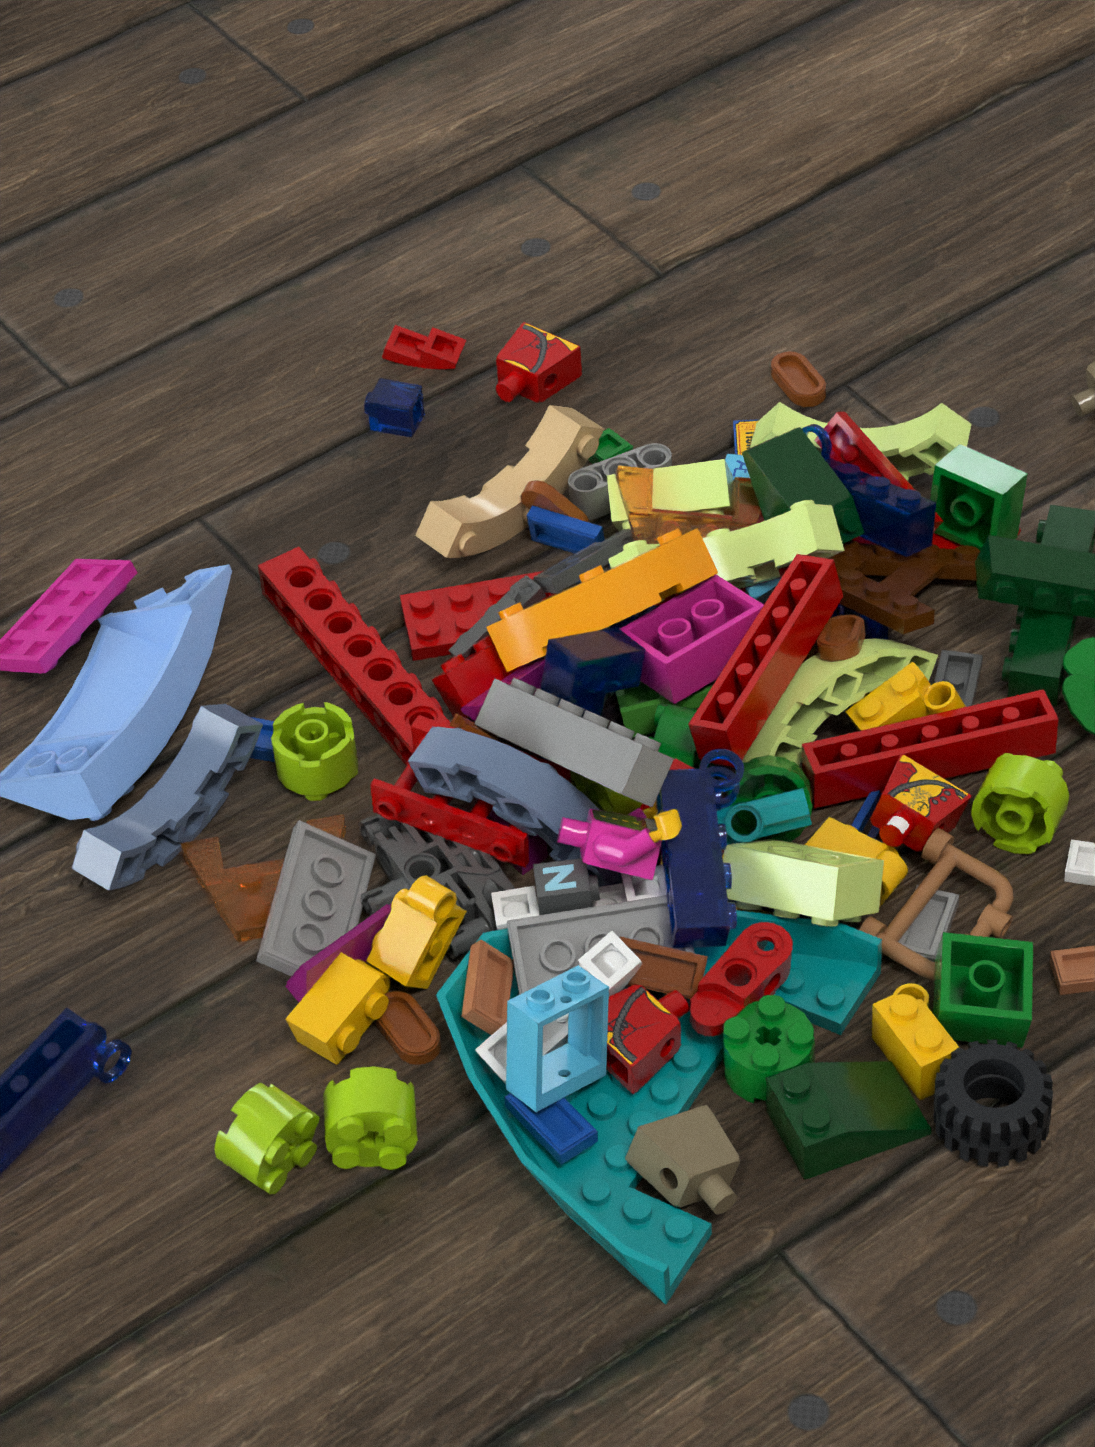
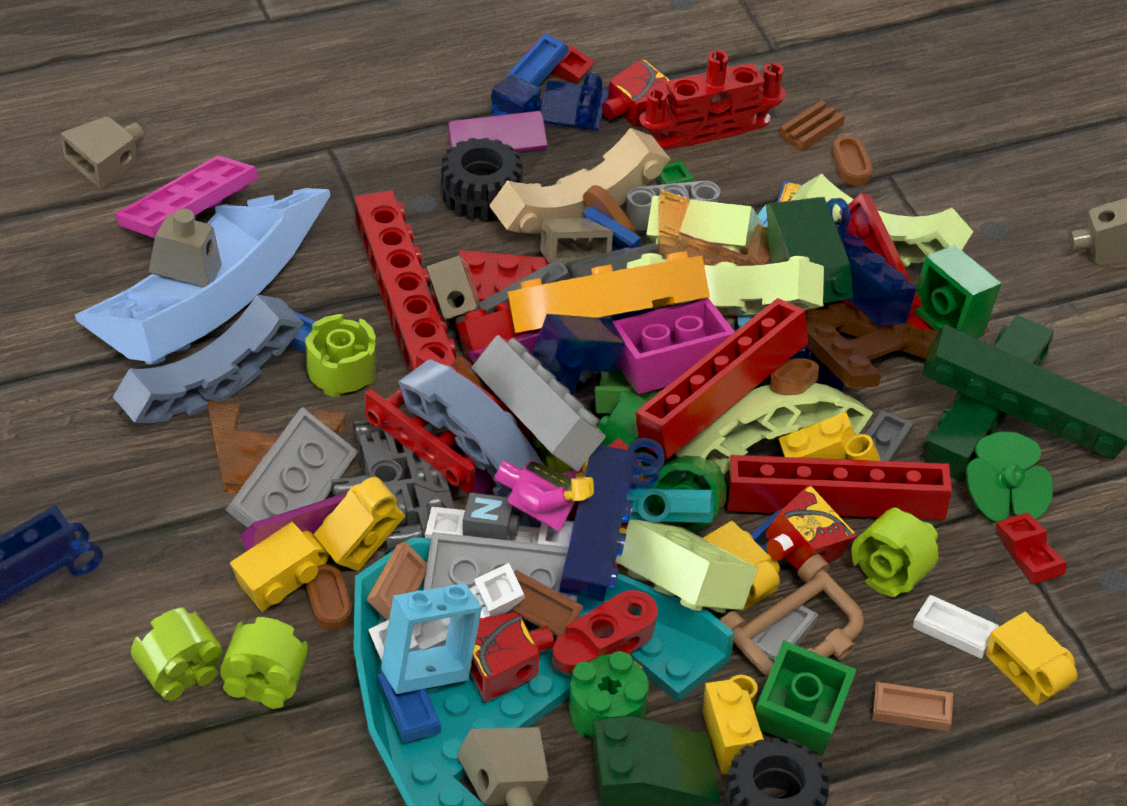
camera: 10 degrees right, 0 degrees up
(89, 677) = (186, 250): none -> dark tan torso
(388, 452) = (519, 130): none -> magenta slope
(388, 504) = (475, 175): none -> black tyre
(405, 353) = (540, 60): none -> blue tile
(412, 631) = (450, 281): none -> dark tan torso
(462, 393) = (575, 103): none -> clear blue hinge
(518, 551) = (570, 238): none -> dark tan torso
(624, 353) = (713, 103): none -> red piece
(732, 348) = (807, 123): none -> dark orange tile

